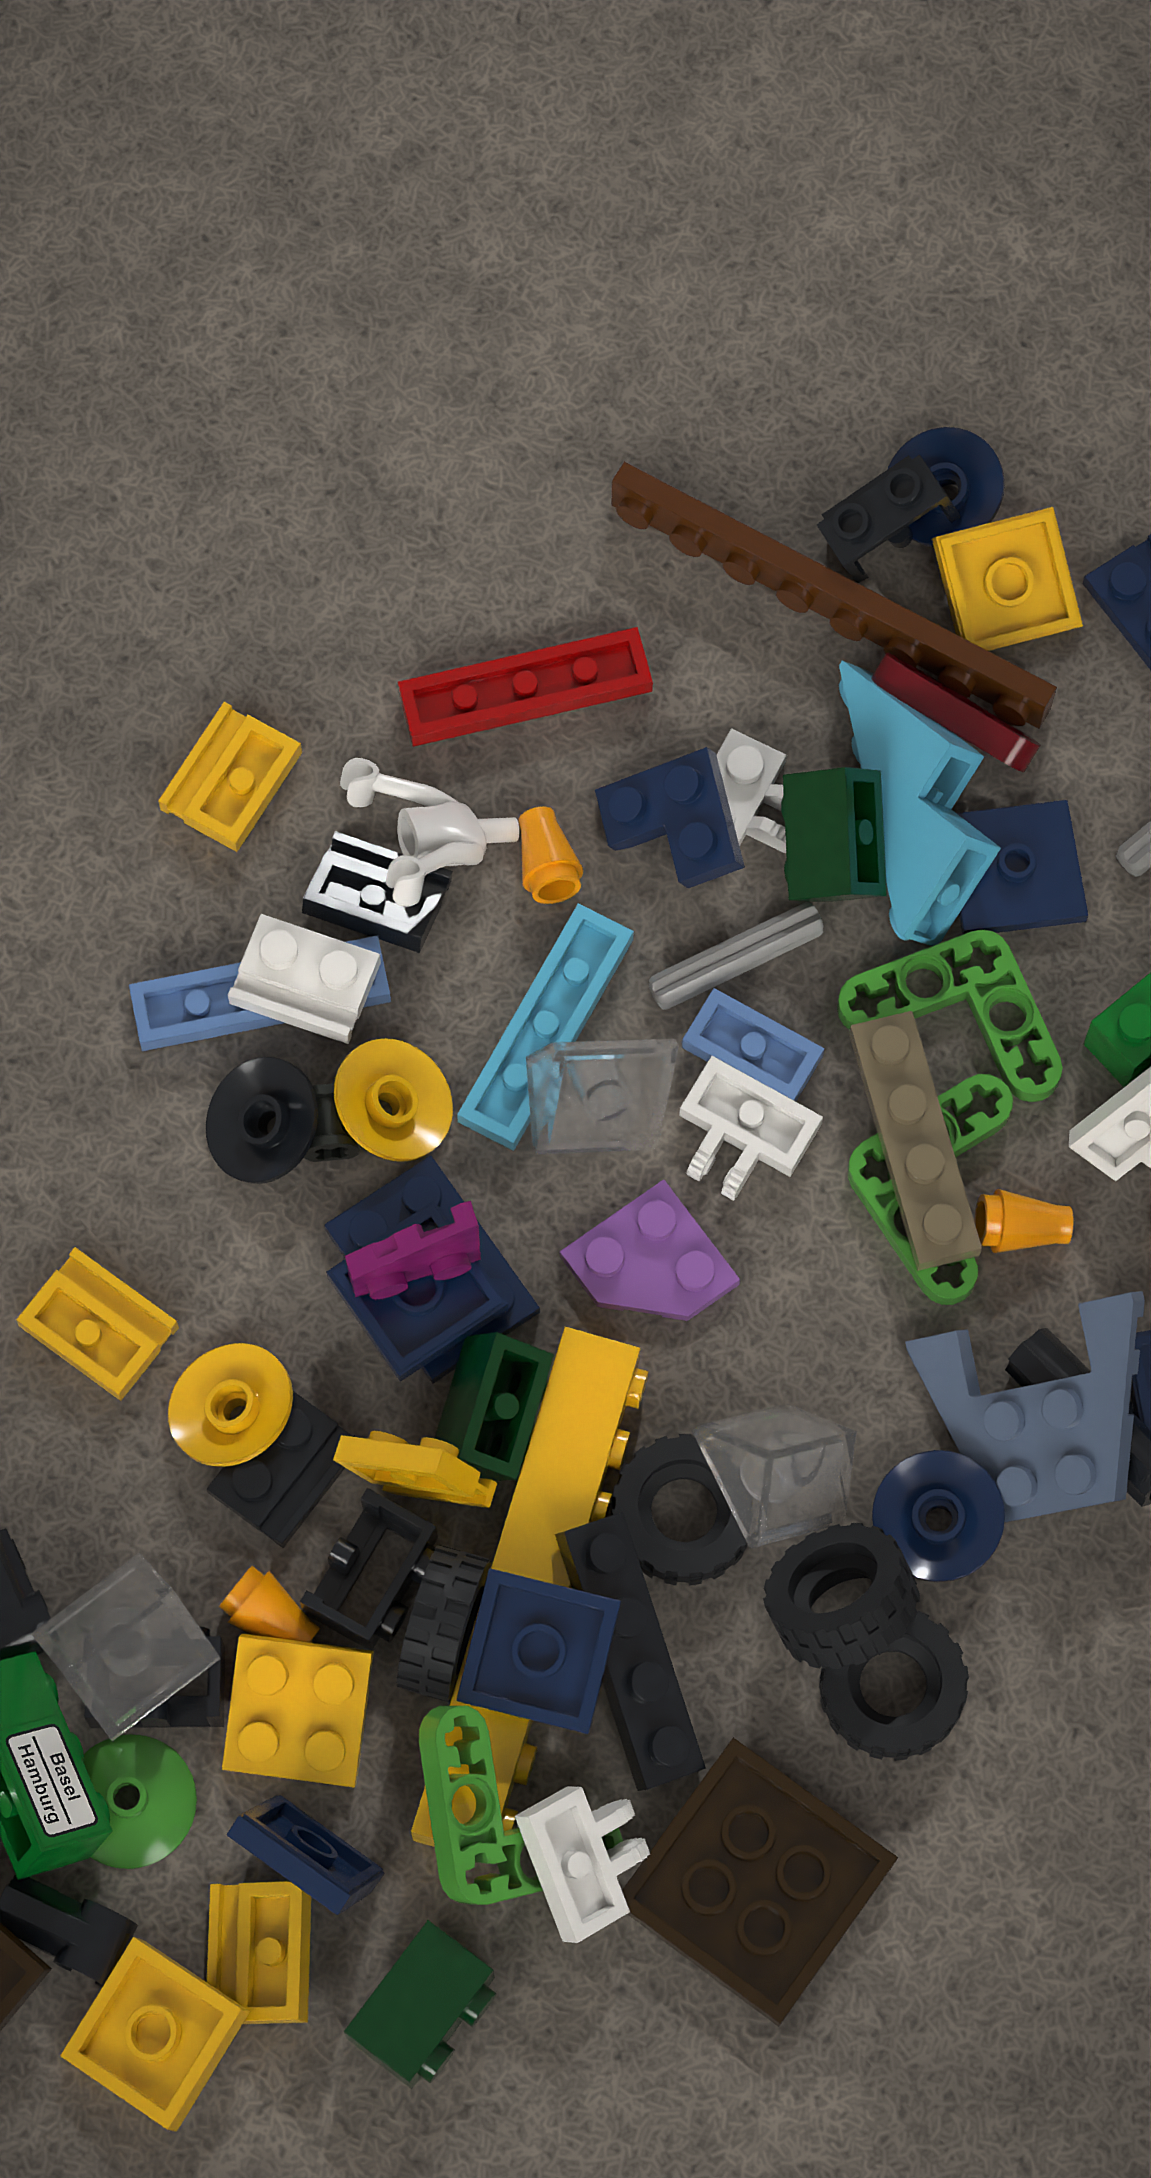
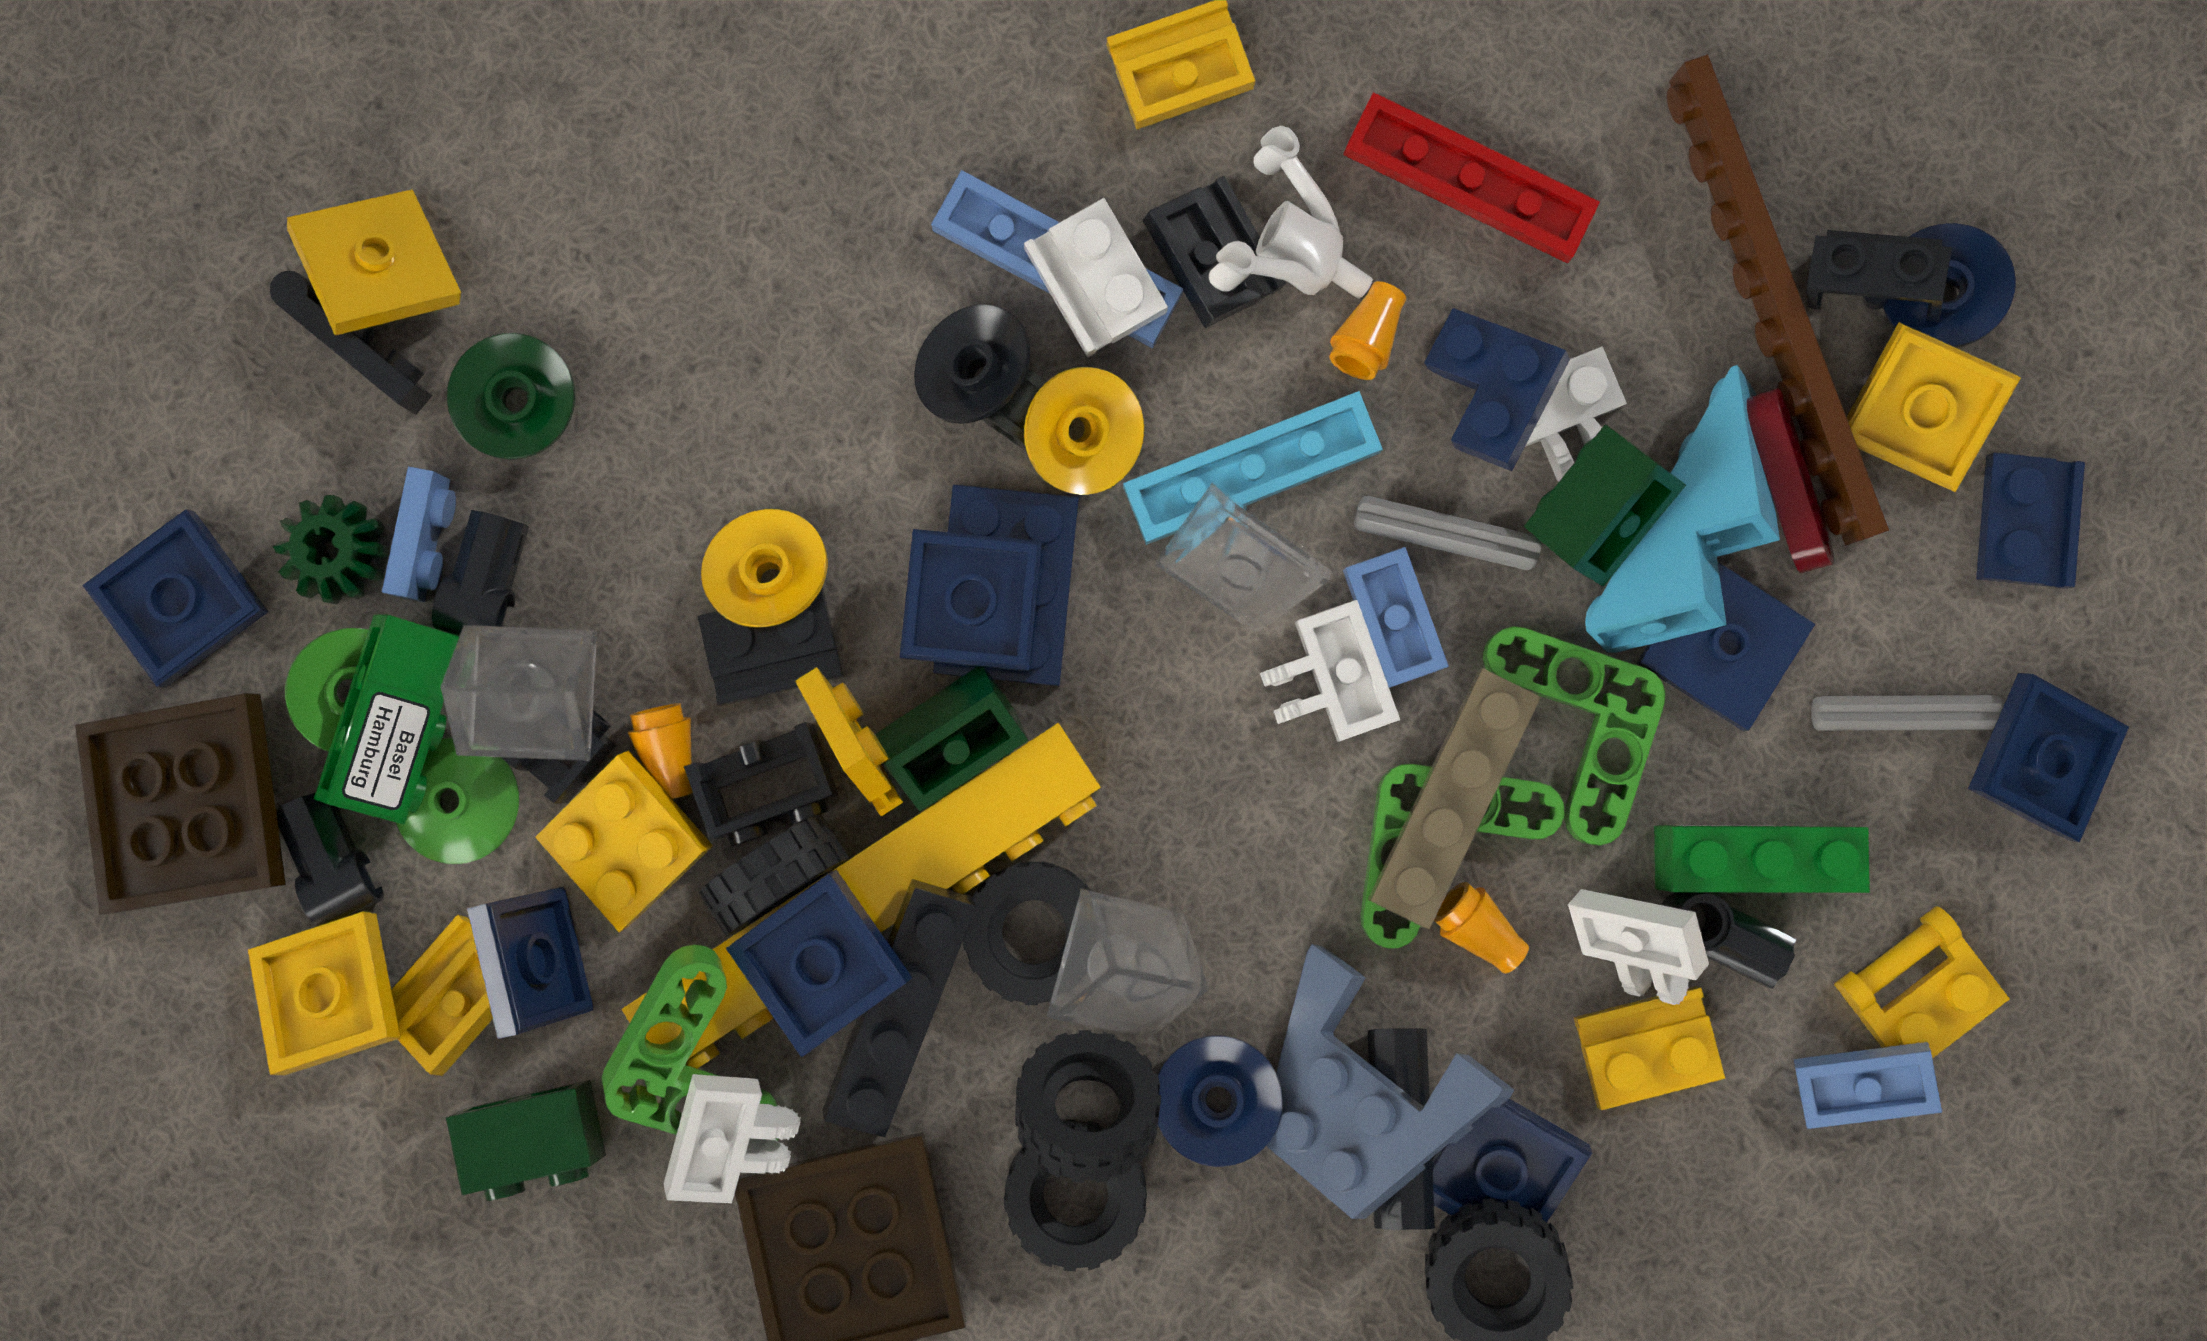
camera: 40 degrees right, 15 degrees up
(97, 1324) = (721, 420): yellow plate -> none
(411, 1254) = (1004, 593): magenta wing -> none
(651, 1259) = (1176, 717): medium lavender plate -> none

